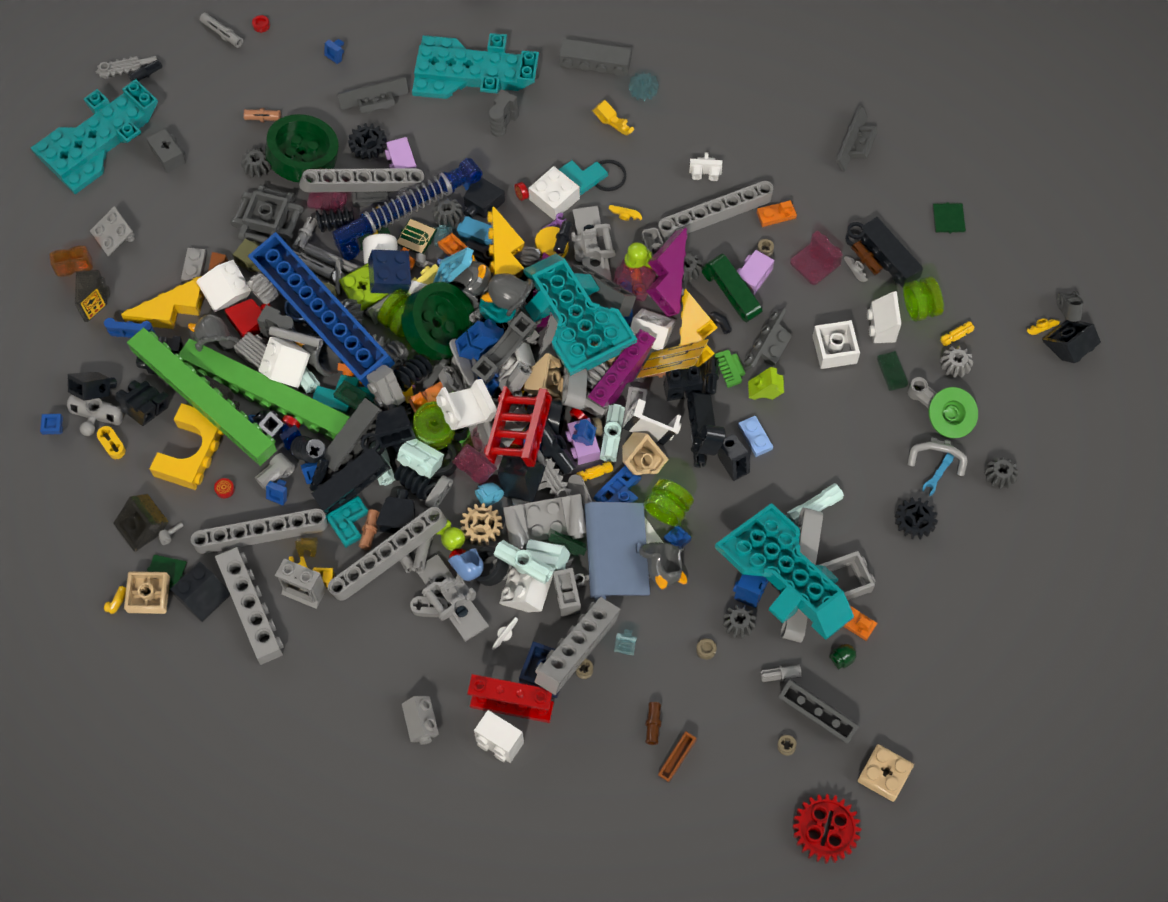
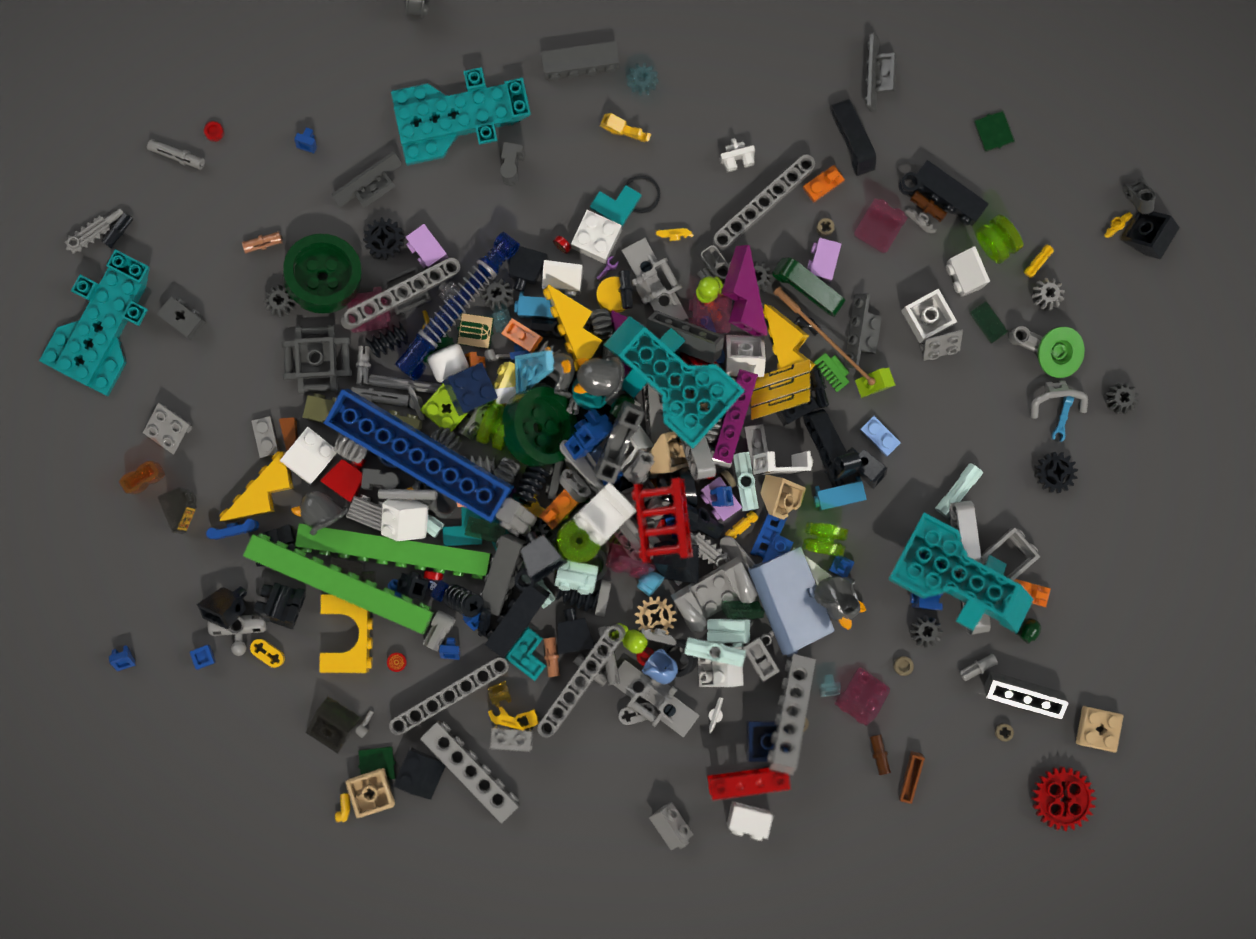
camera: 25 degrees left, 20 degrees up
(477, 536) = (659, 636): none -> light grey piece
(514, 210) = (563, 277): none -> white slope
(654, 662) = (863, 697): none -> clear pink bracket
(697, 473) = (839, 495): none -> dark azure brick
(714, 304) = (797, 309): none -> medium nougat piece
(817, 183) = (855, 137): none -> black beam
(840, 371) = (941, 345): none -> light grey hinge

